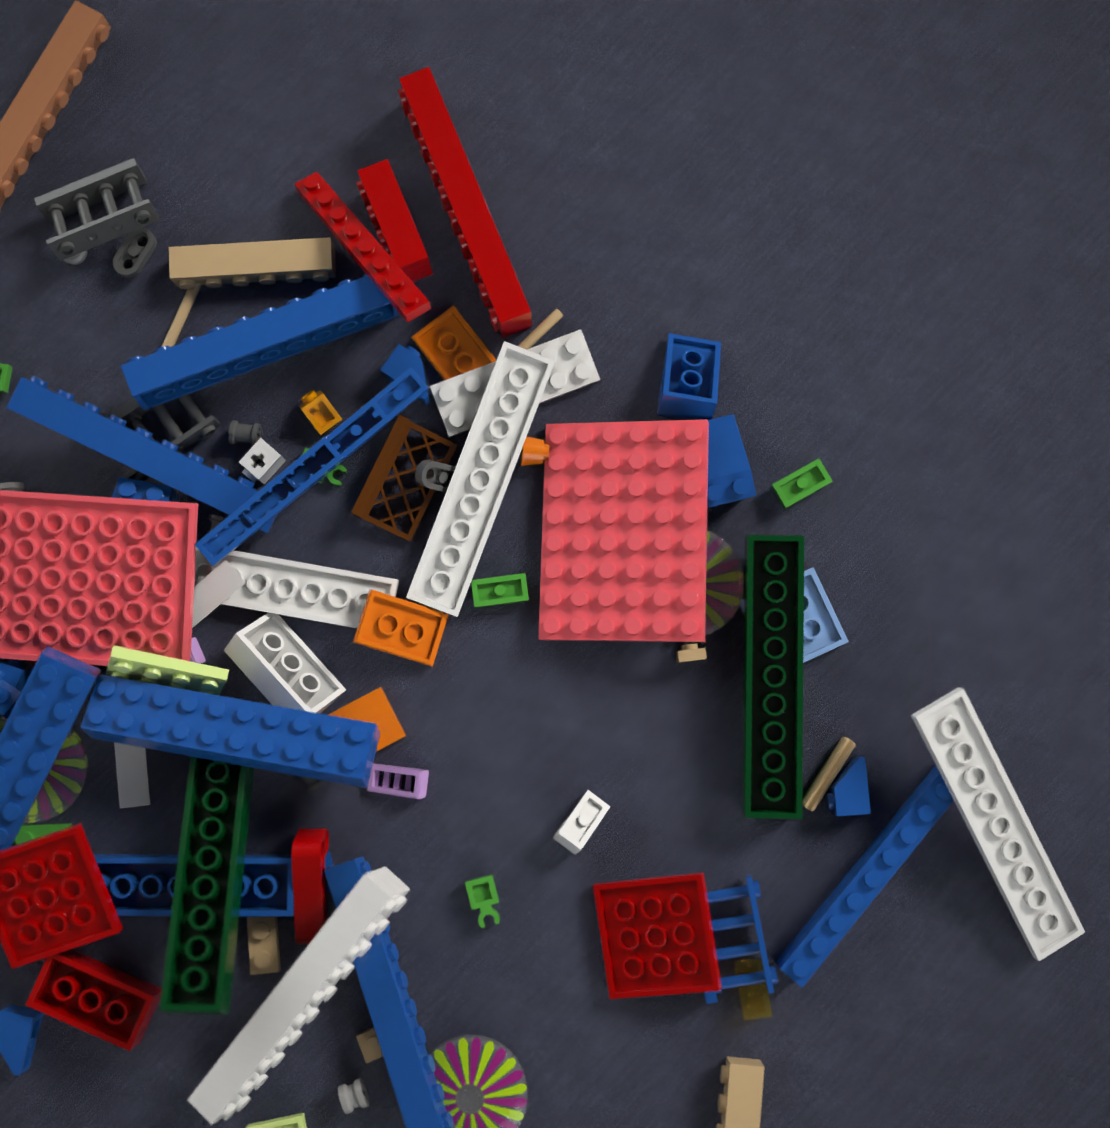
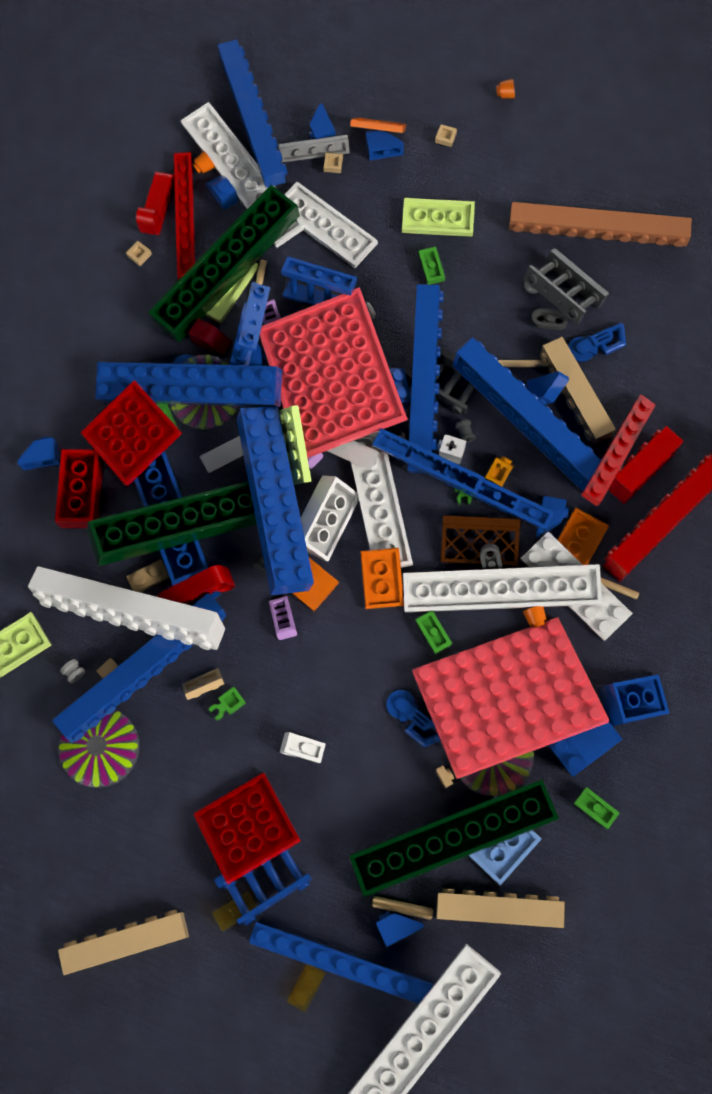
camera: 75 degrees right, 10 degrees down
(197, 224) = (585, 348): none -> blue piece
(232, 298) = (548, 386): none -> blue slope
(444, 923) = (202, 684): none -> tan plate
(578, 669) = (403, 707): none -> blue piece
(876, 655) = (500, 909): none -> tan brick
(879, 934) = (306, 987): none -> clear yellow plate

